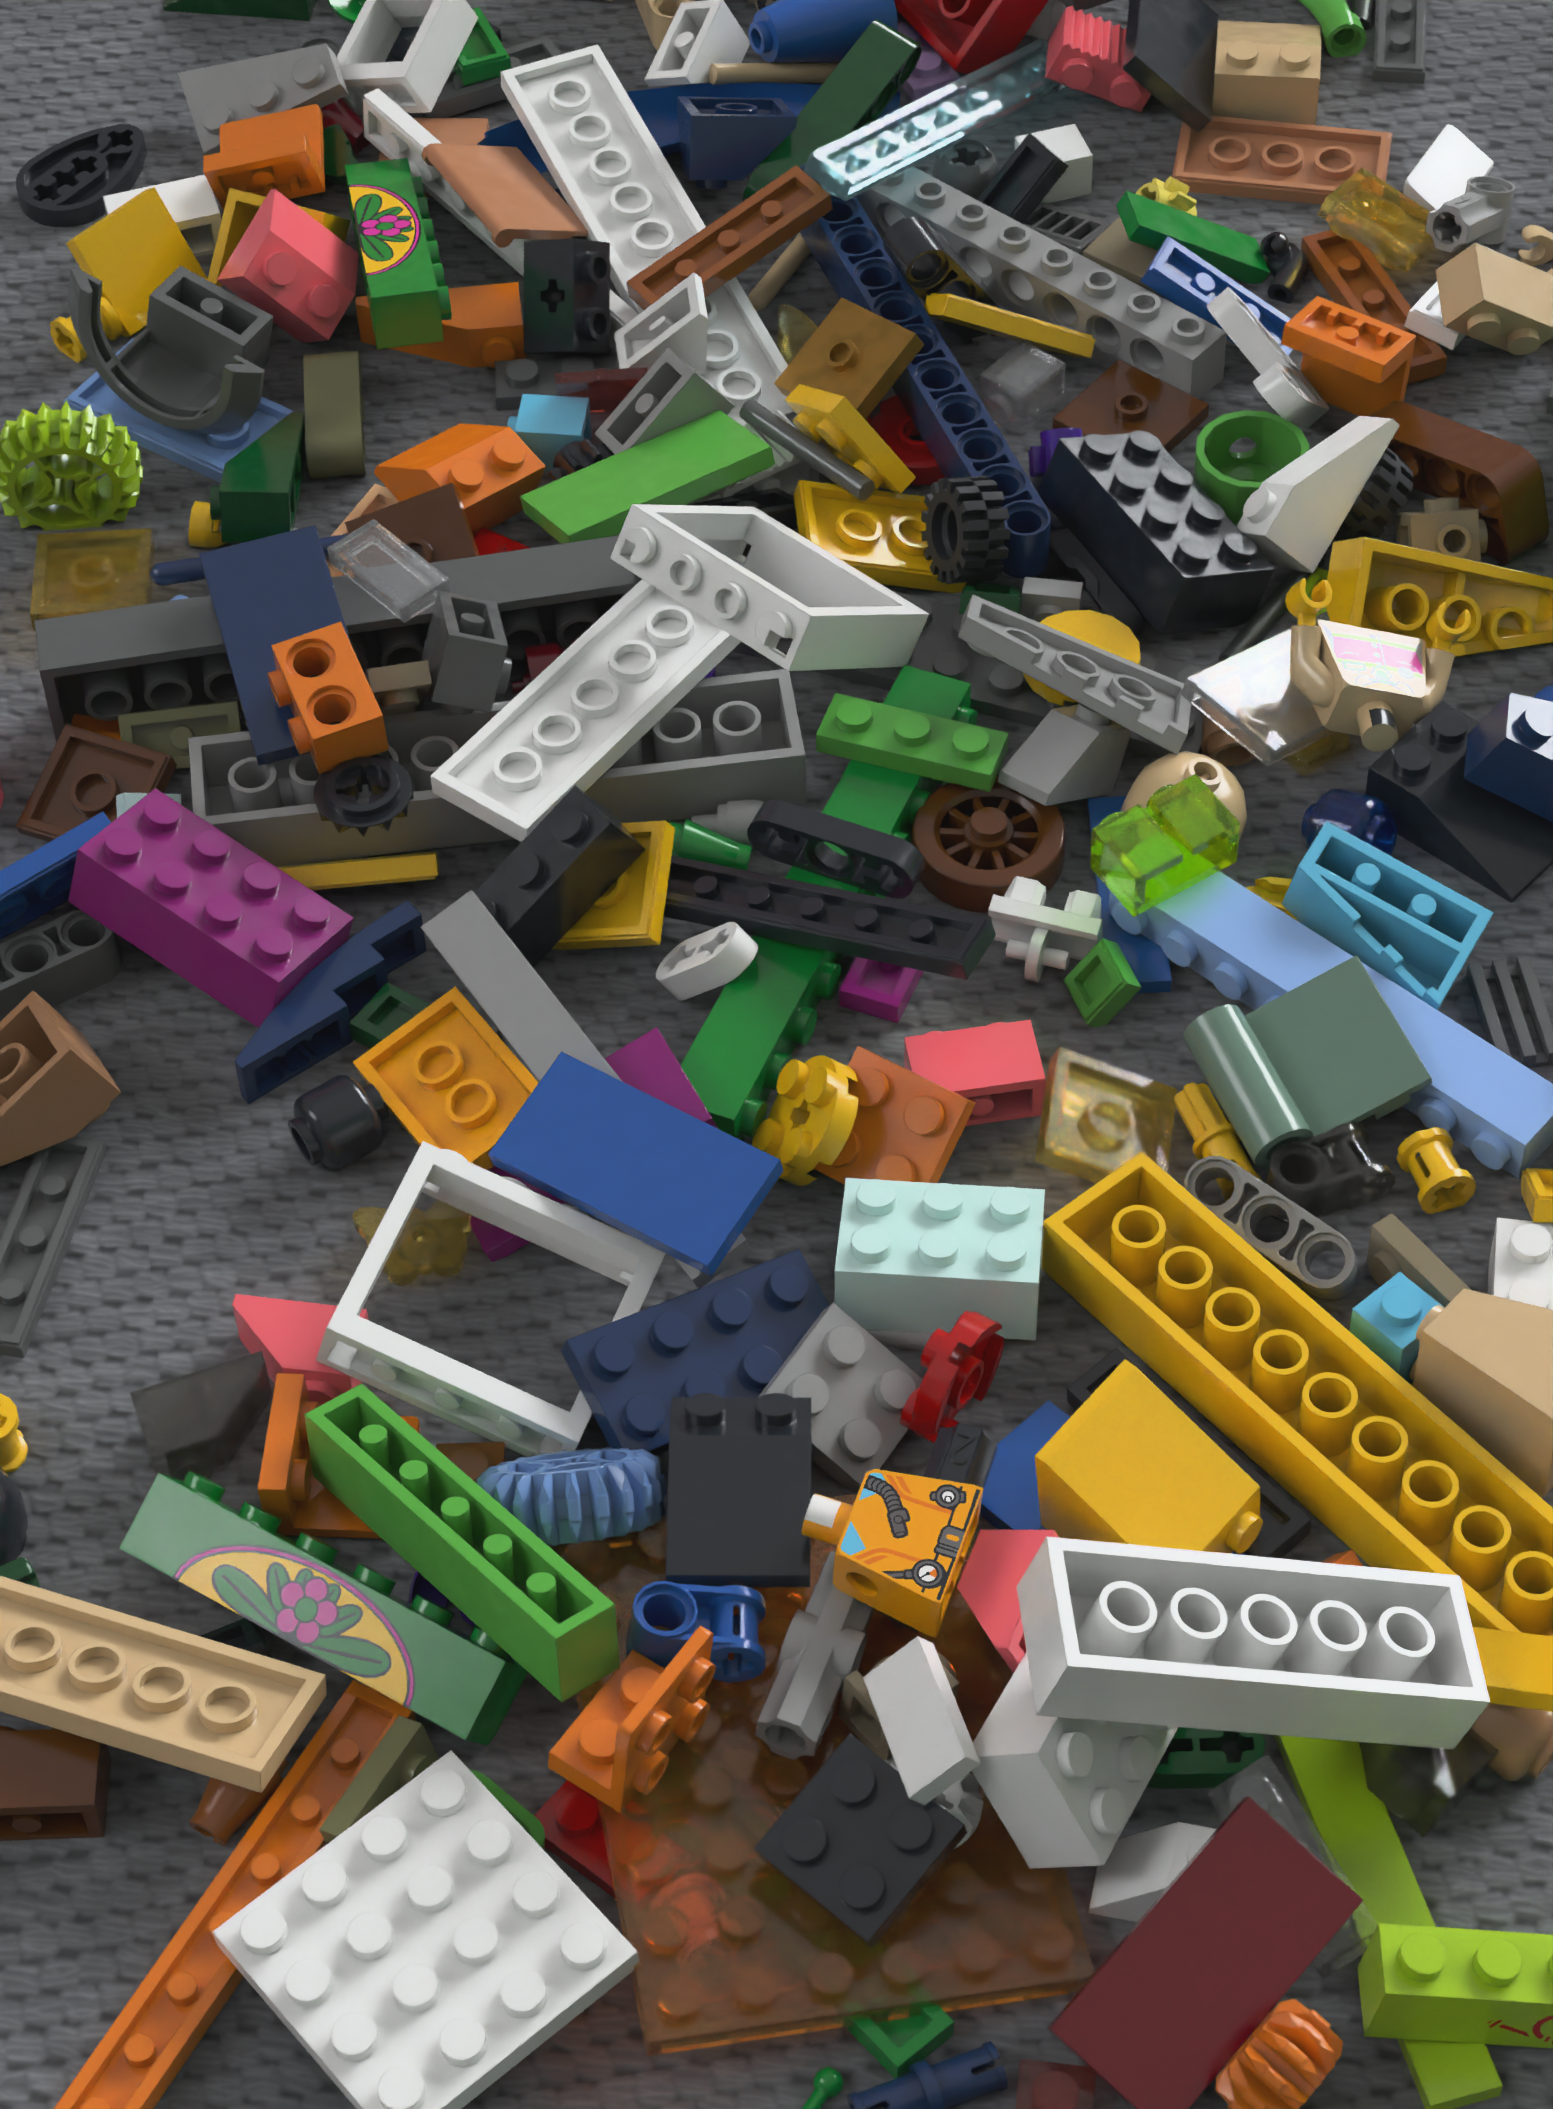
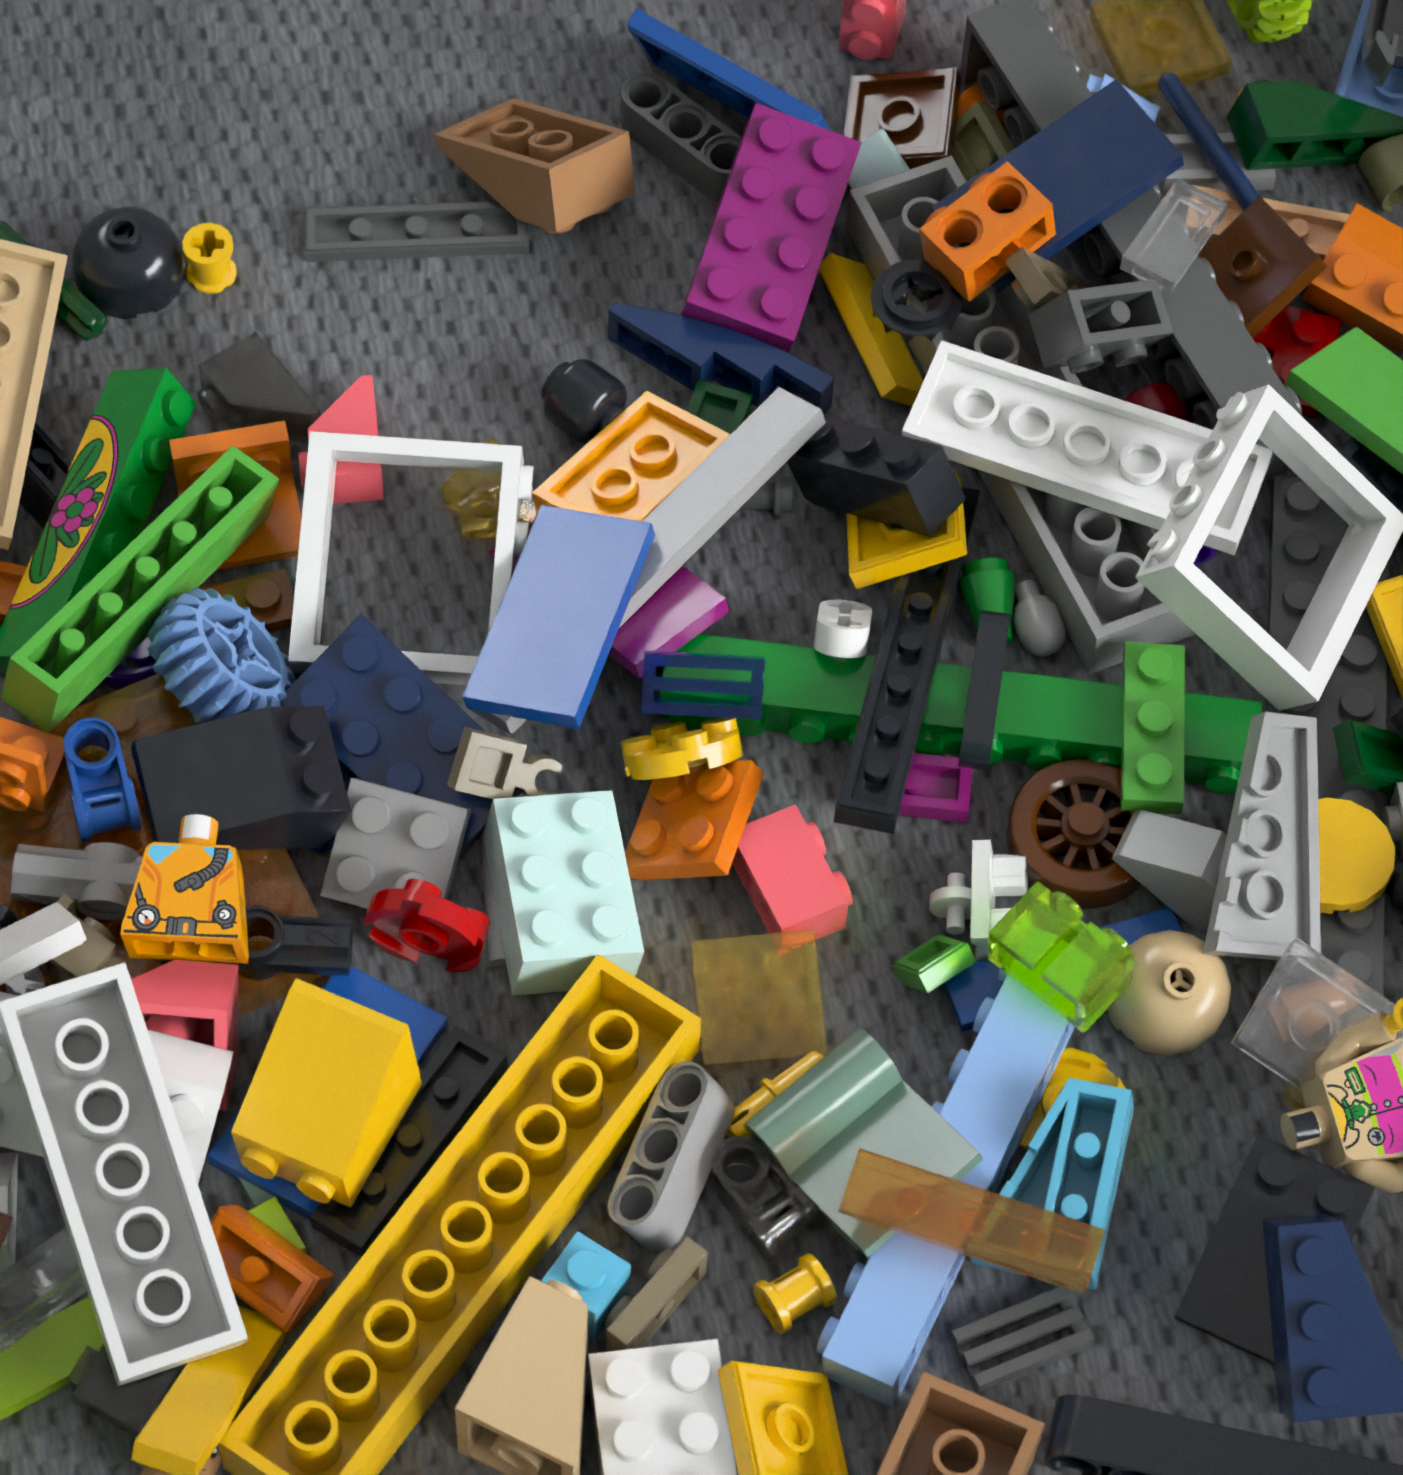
camera: 70 degrees right, 10 degrees up
(769, 1037) = (754, 688): none -> clear blue tile
(796, 1260) = (495, 765): none -> plate
(1354, 813) = (1198, 1144): clear blue head -> none
(1426, 979) = (972, 1221): none -> clear orange tile

